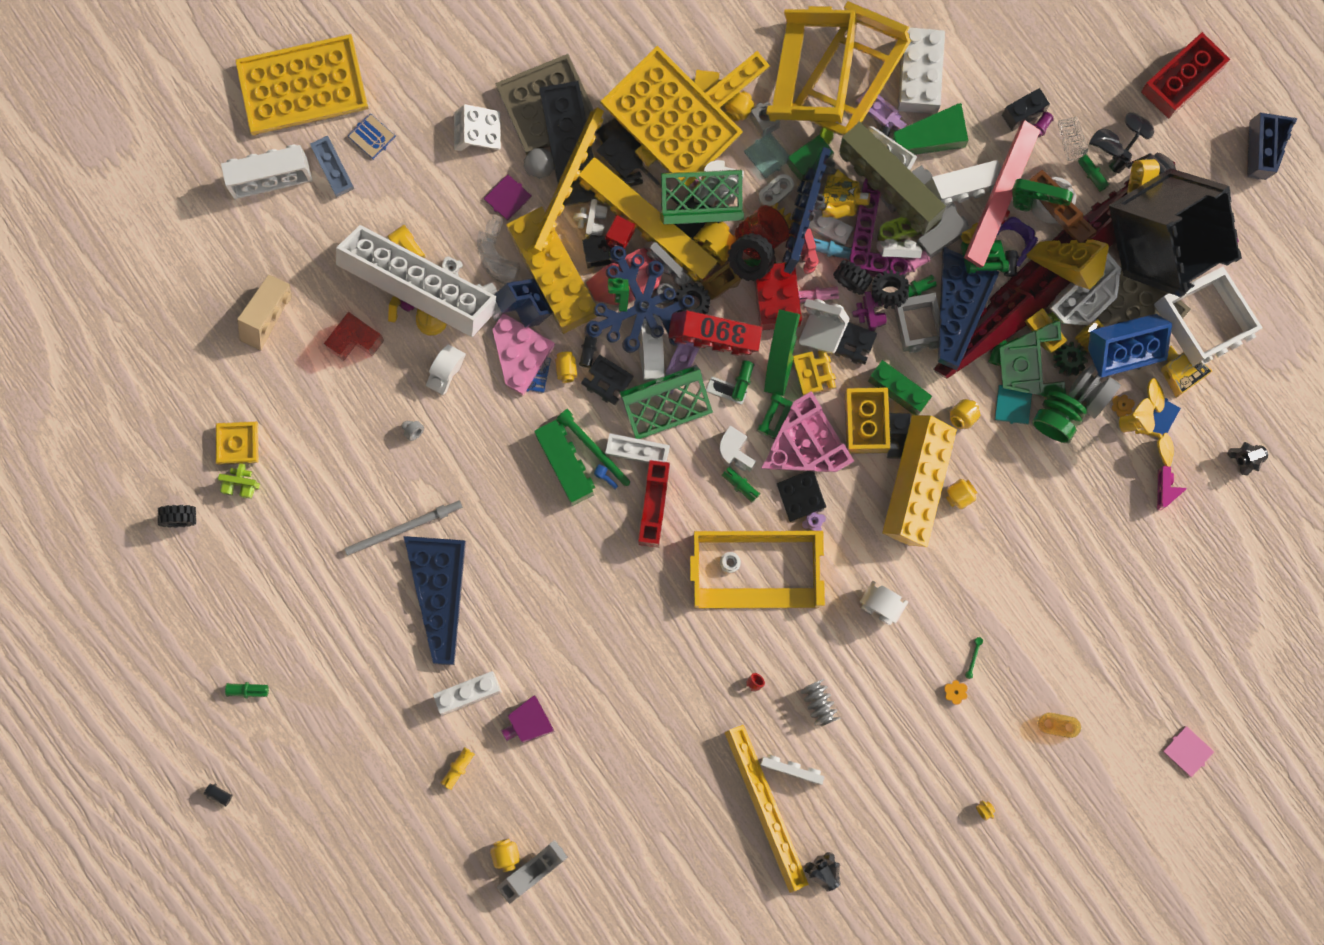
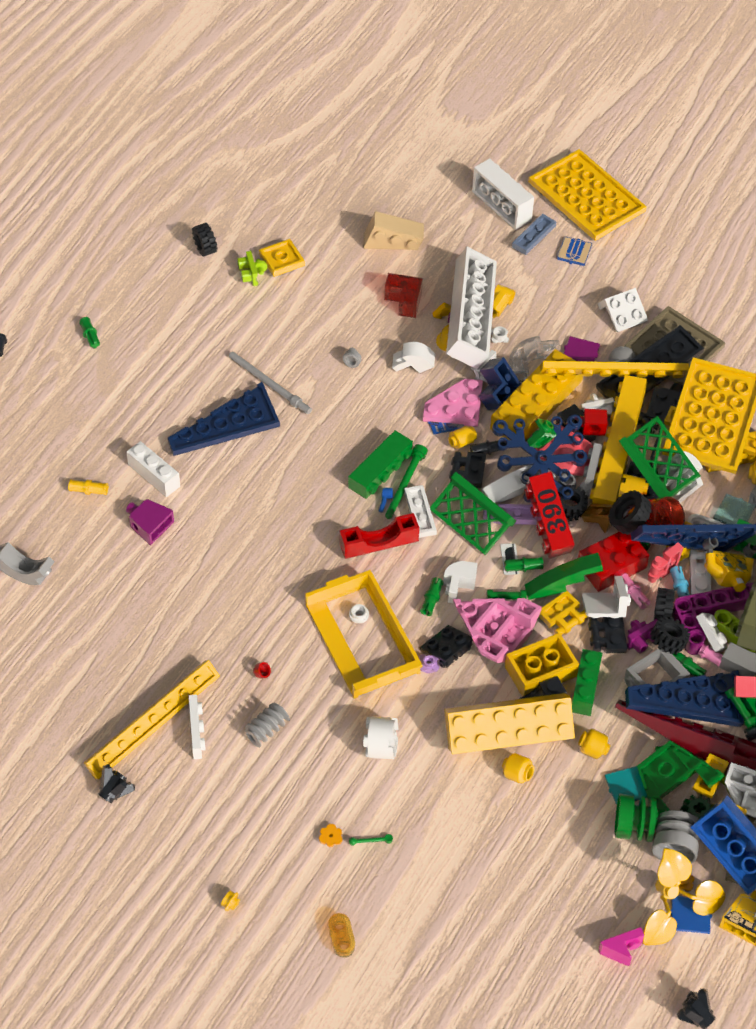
camera: 65 degrees right, 25 degrees down
(505, 855) = (29, 542): yellow head -> none

